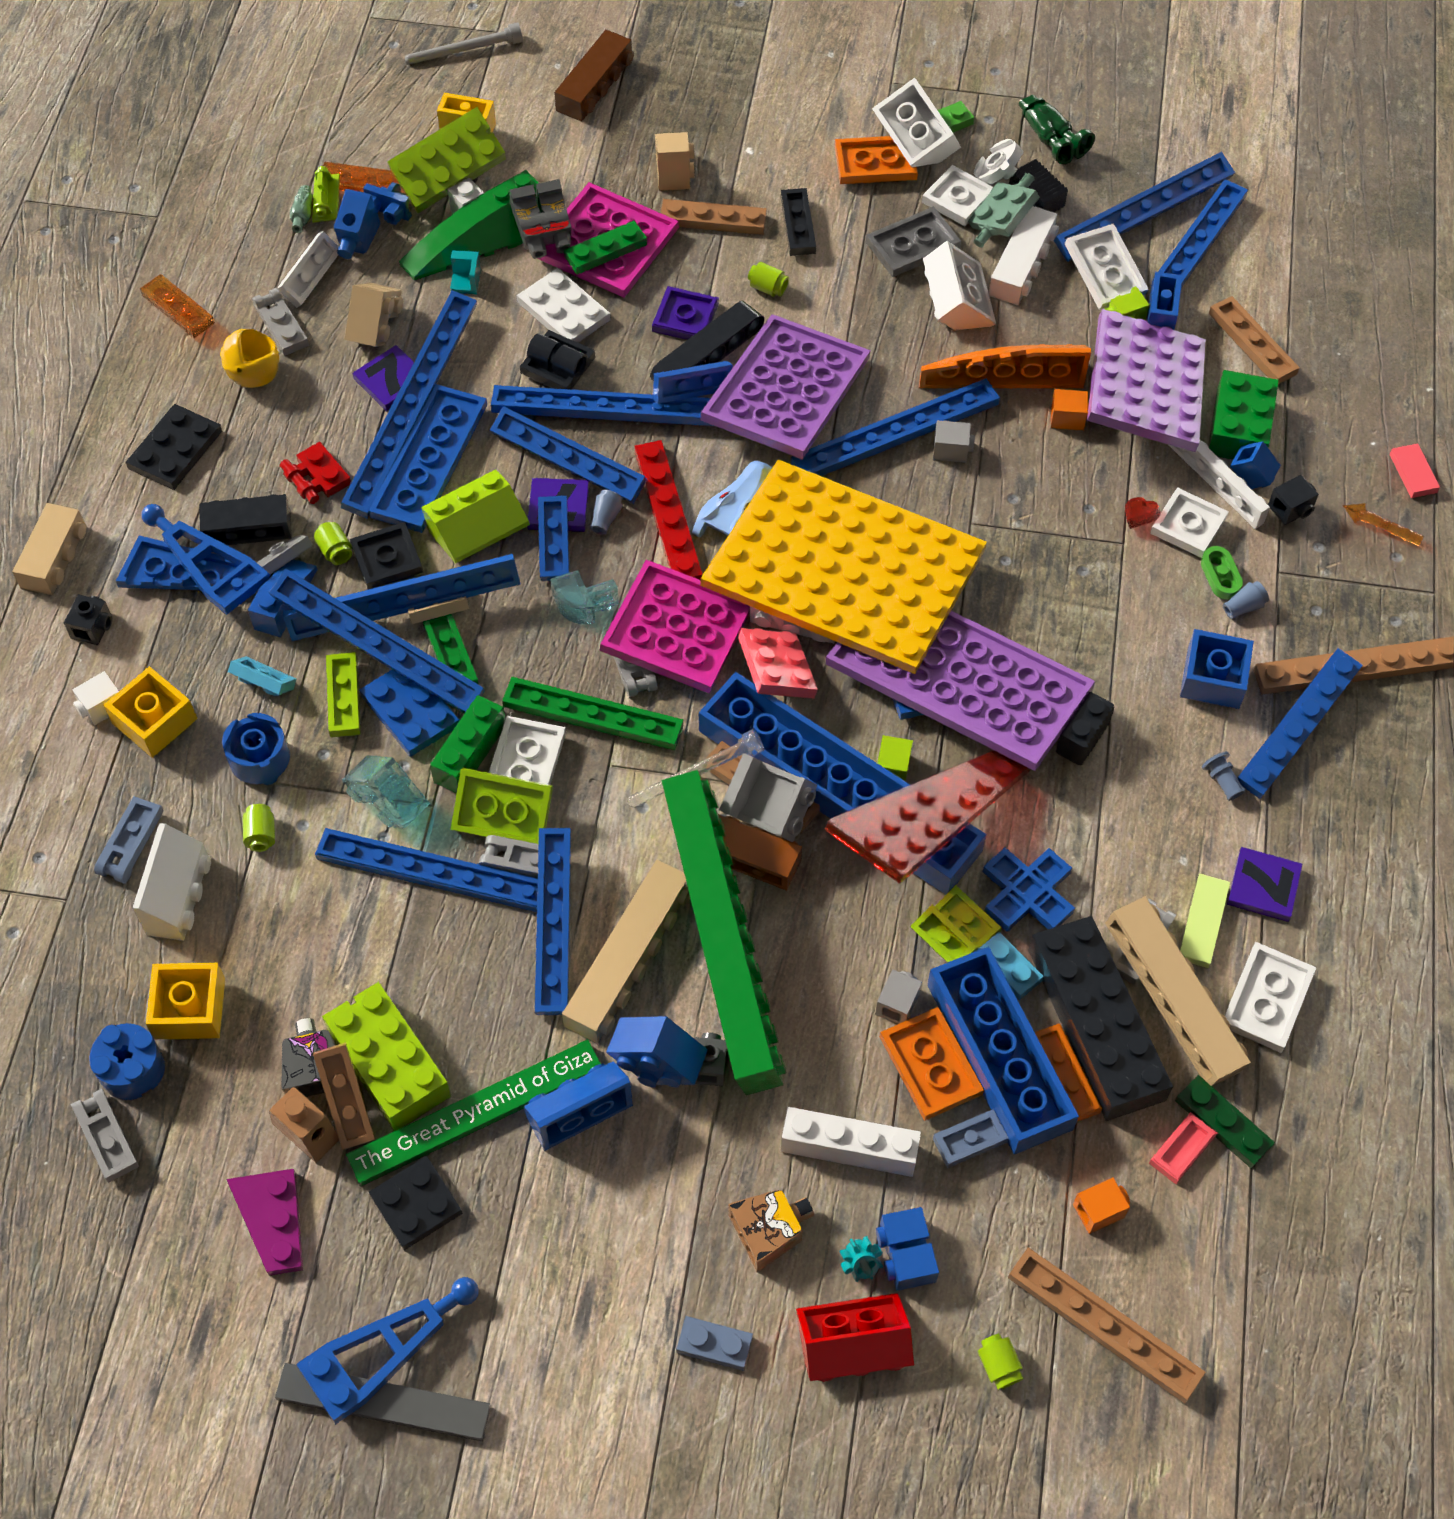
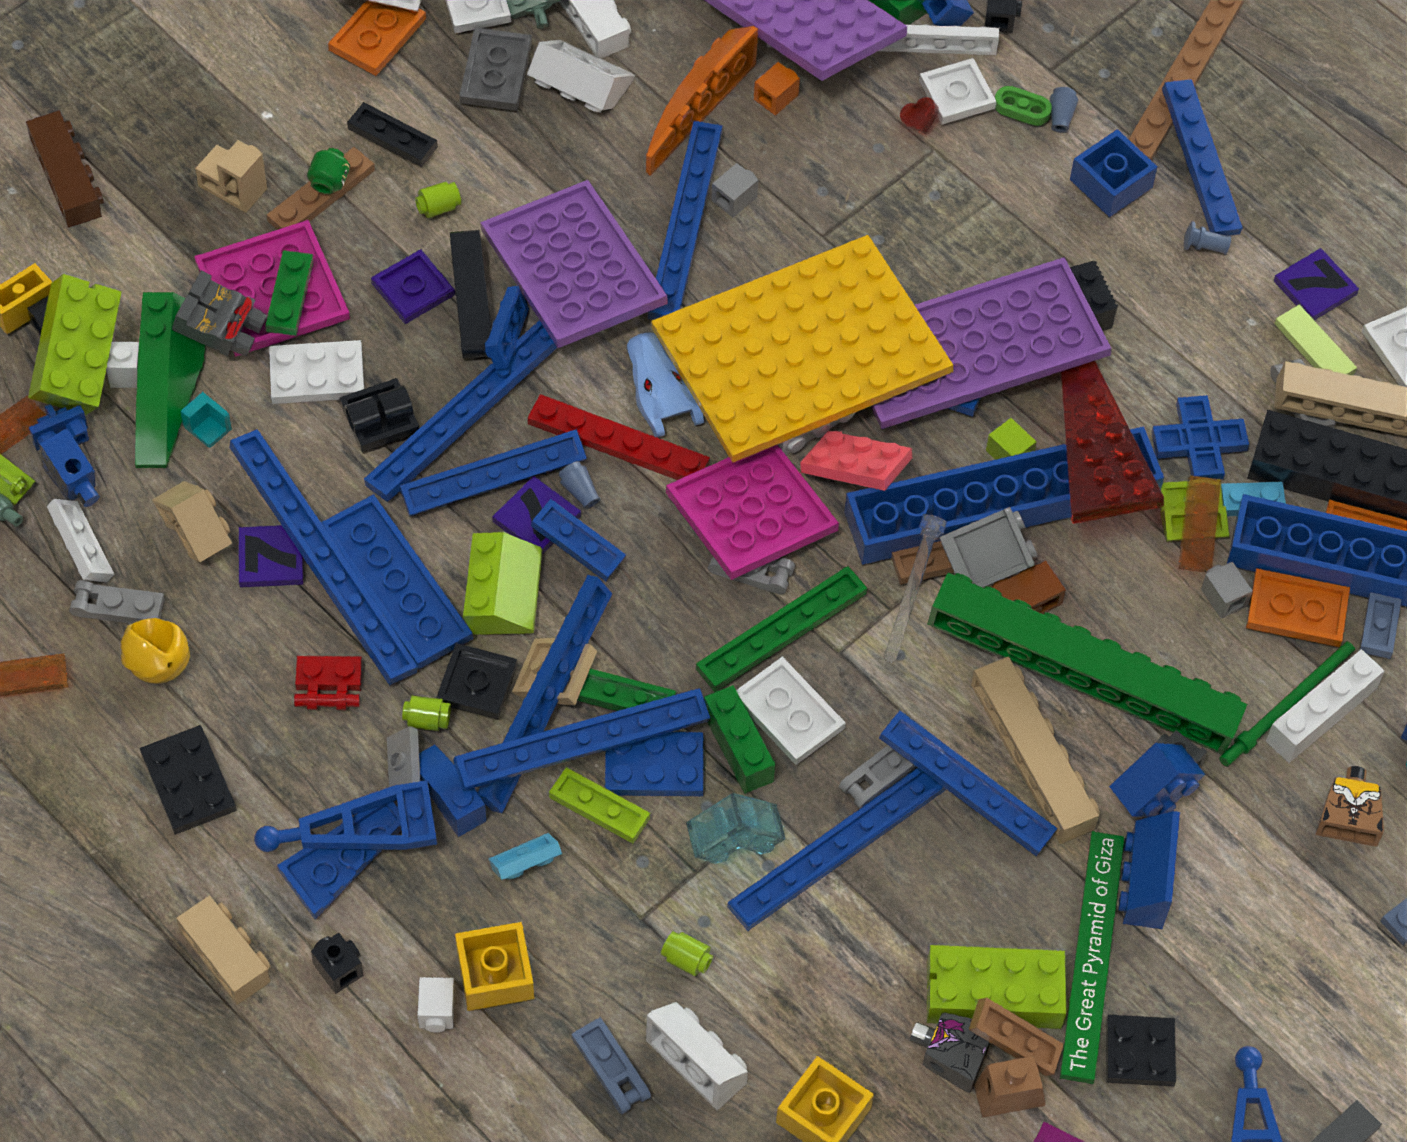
camera: 55 degrees left, 0 degrees up
(247, 519) = (337, 766): black brick -> none
(256, 749) = (607, 904): blue brick -> none
(500, 806) = (826, 752): lime plate -> none
(581, 603) = (654, 566): clear light blue brick -> none
(722, 201) = (328, 171): none -> green head
(769, 1103) = (1248, 739): none -> green bar
(942, 937) = (1199, 524): none -> clear orange plate

